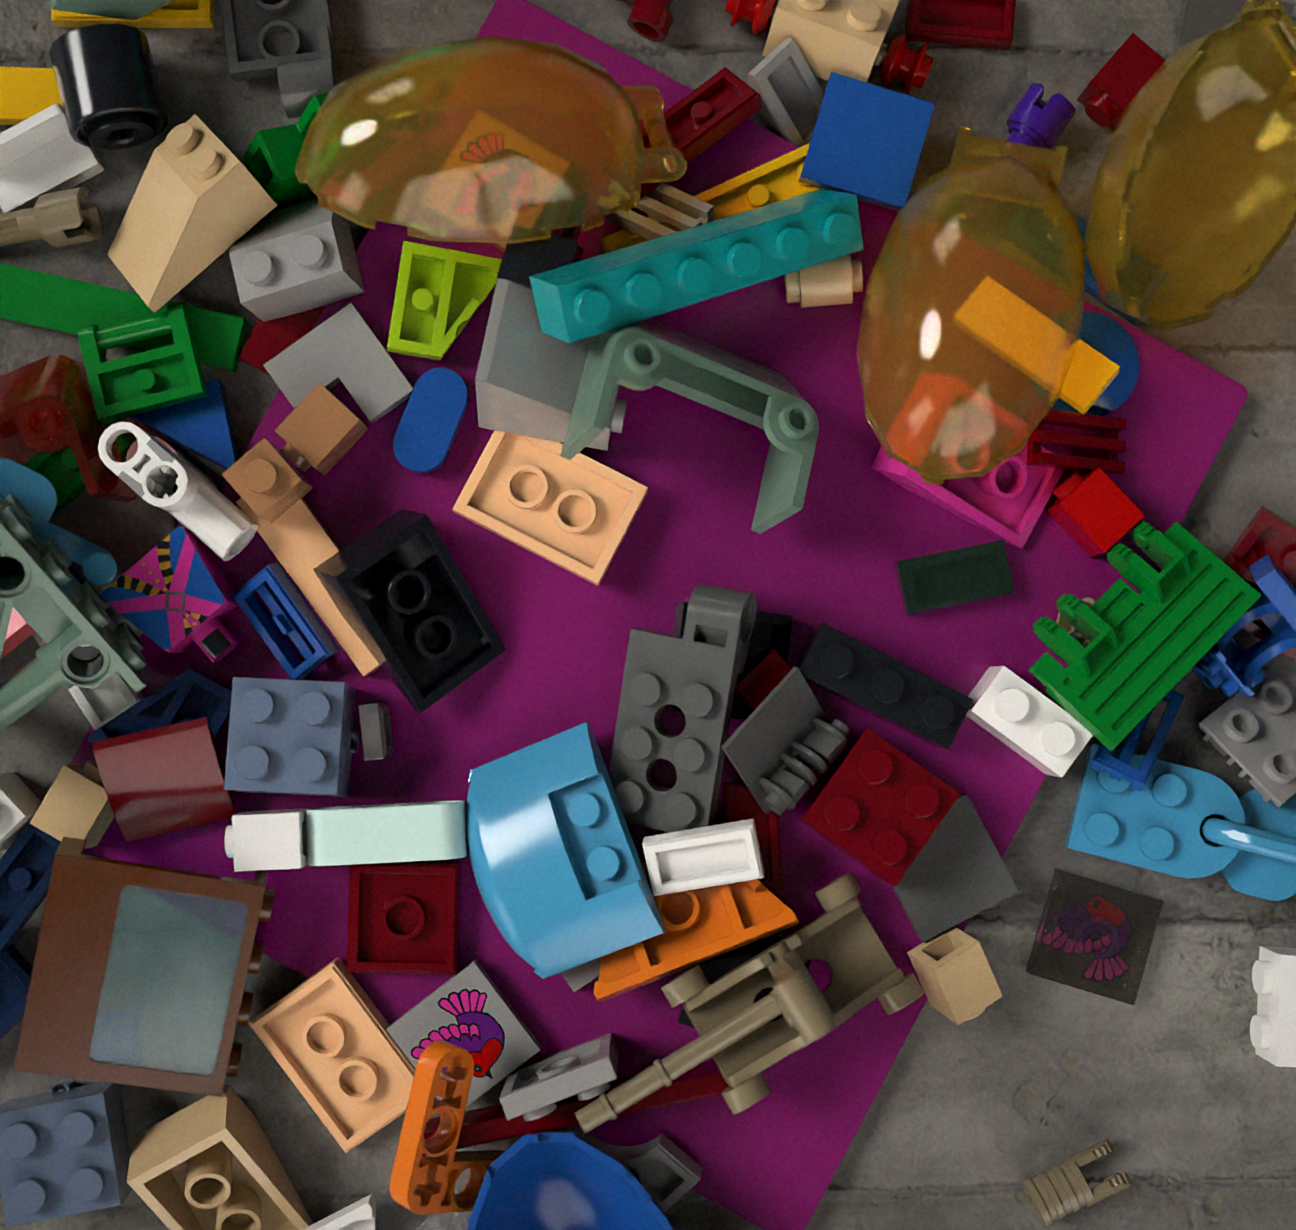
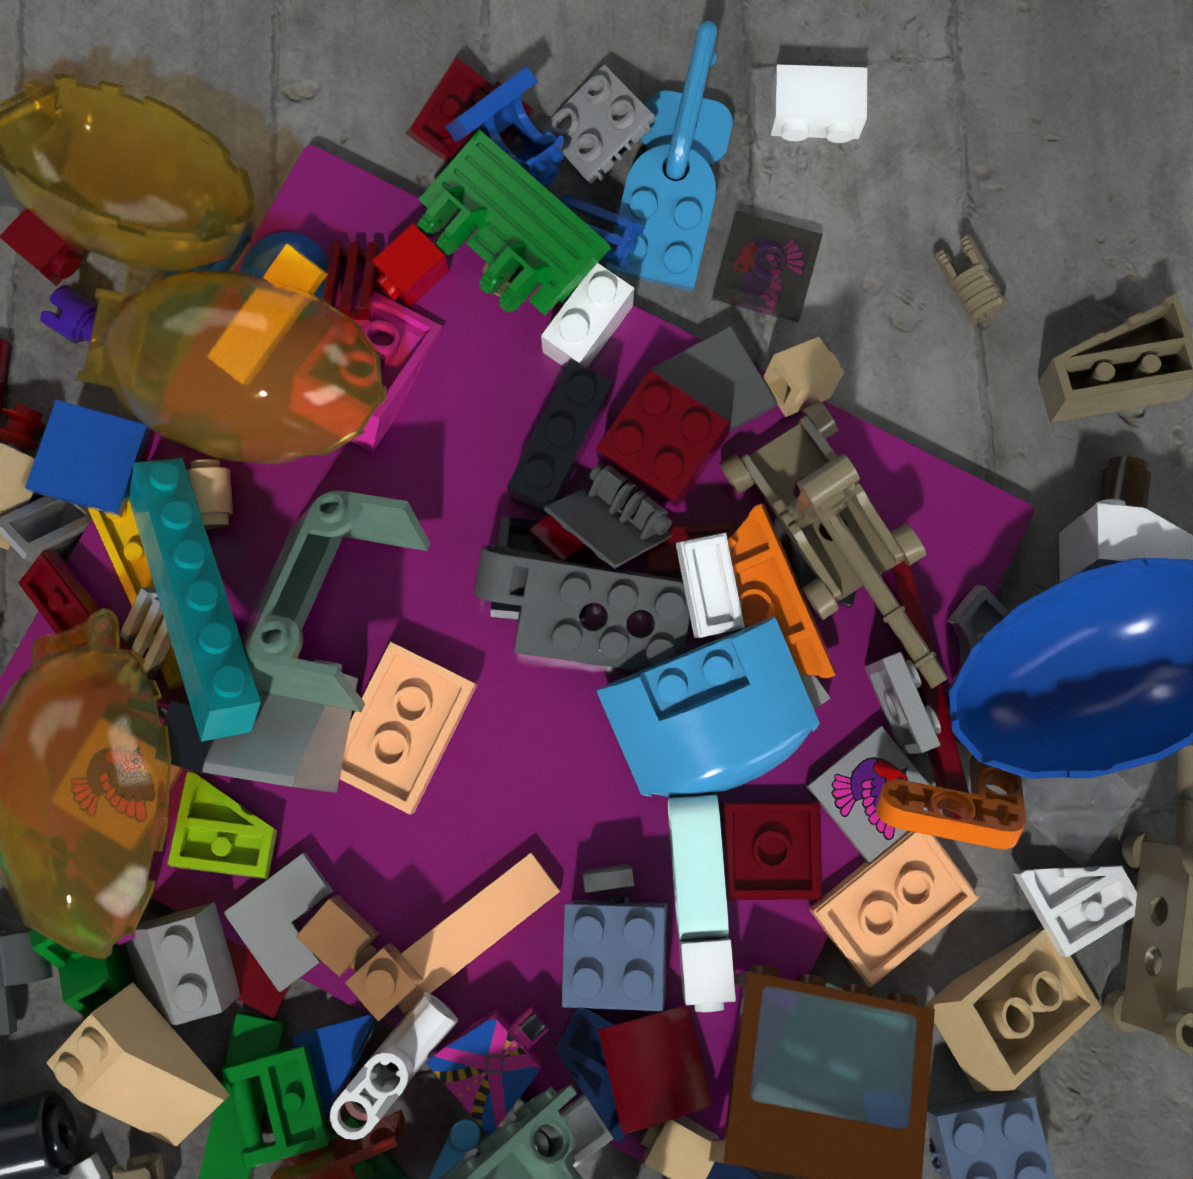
camera: 90 degrees left, 5 degrees down
(291, 616) = (503, 950): blue tile -> none
(411, 607) = (496, 849): black slope -> none
(431, 420) = (331, 837): blue tile -> none
(954, 577) = (467, 382): clear green tile -> none

